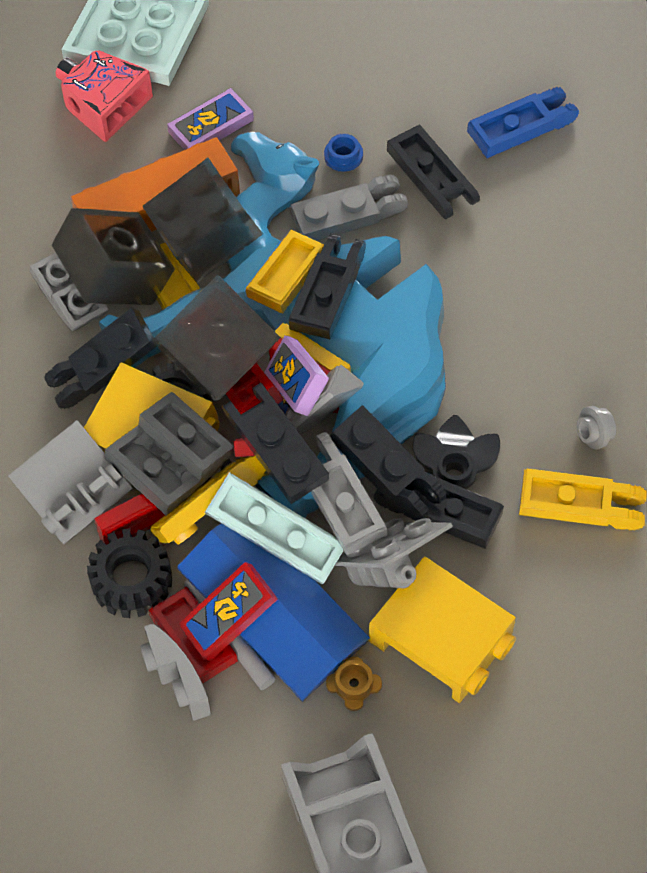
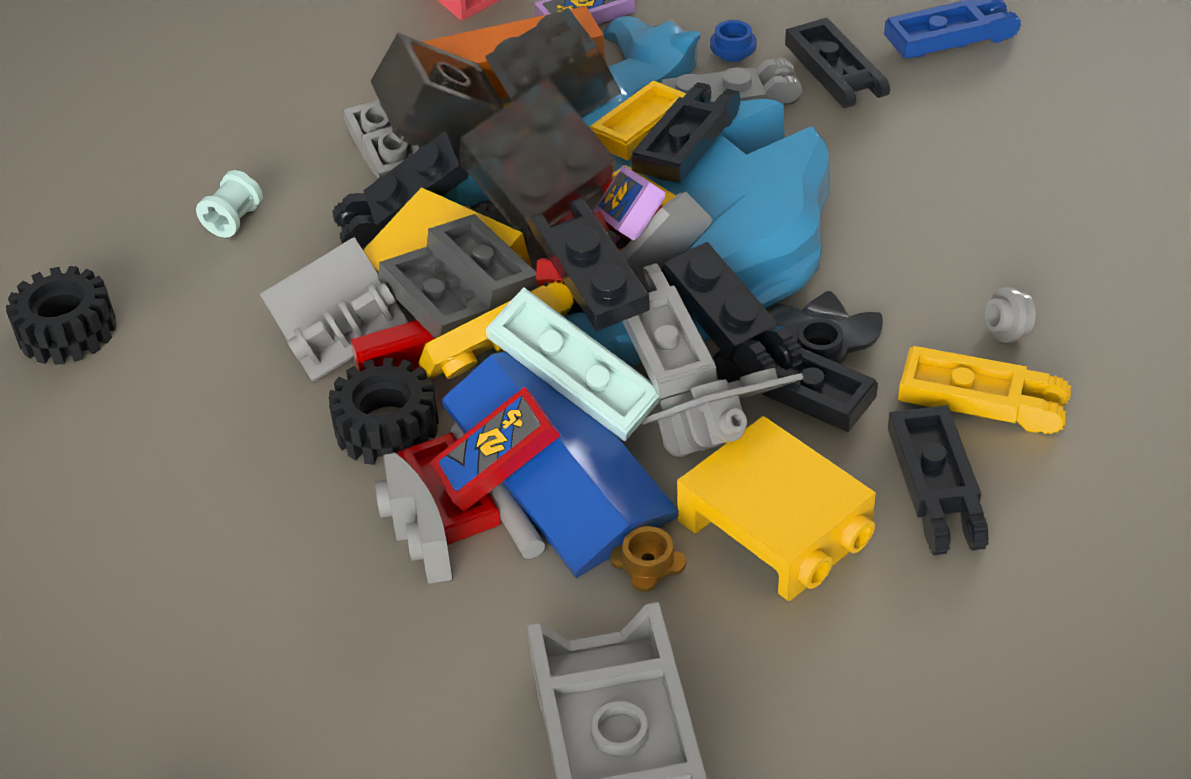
camera: 10 degrees right, 15 degrees down
(556, 582) = (938, 475): none -> black hinge

